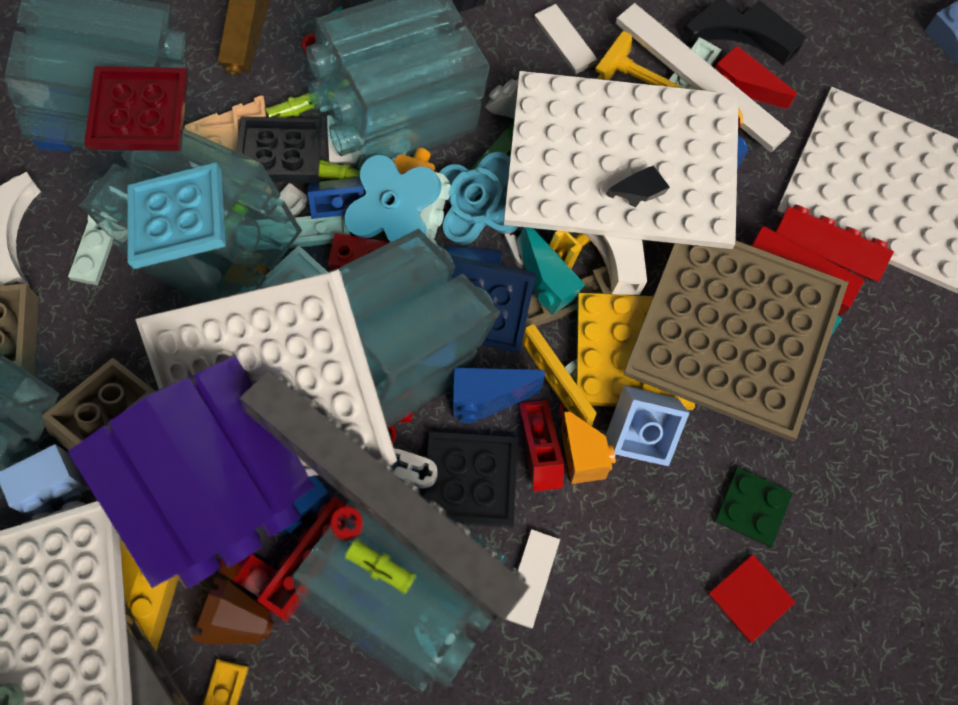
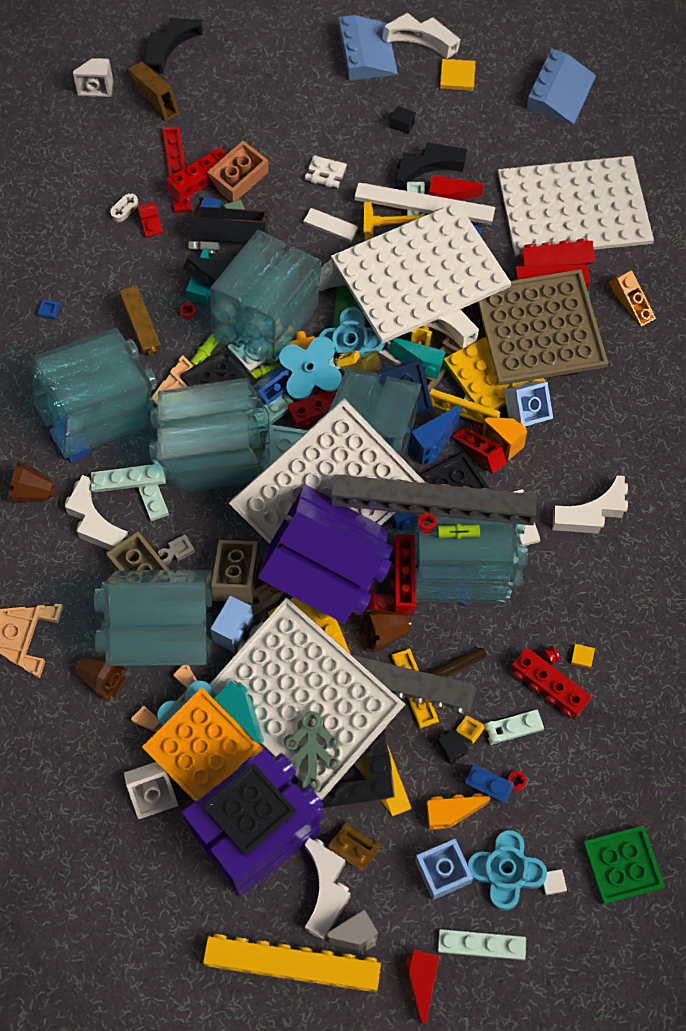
camera: 30 degrees left, 5 degrees down
(67, 203) = (127, 478): none -> light aqua plate
(69, 338) = (178, 548): none -> light grey plate
(136, 108) = (153, 390): dark red plate -> none
(175, 216) = (225, 429): medium azure plate -> none
(451, 218) = (348, 358): none -> yellow tile
(468, 238) = (367, 362): none -> clear yellow slope
(622, 639) = (591, 516): none -> white arch
(640, 186) = (444, 279): black slope -> none
(751, 598) = (637, 459): red tile -> none
(753, 507) = (608, 415): dark green plate -> none
(899, 360) = (631, 296): none -> light orange slope

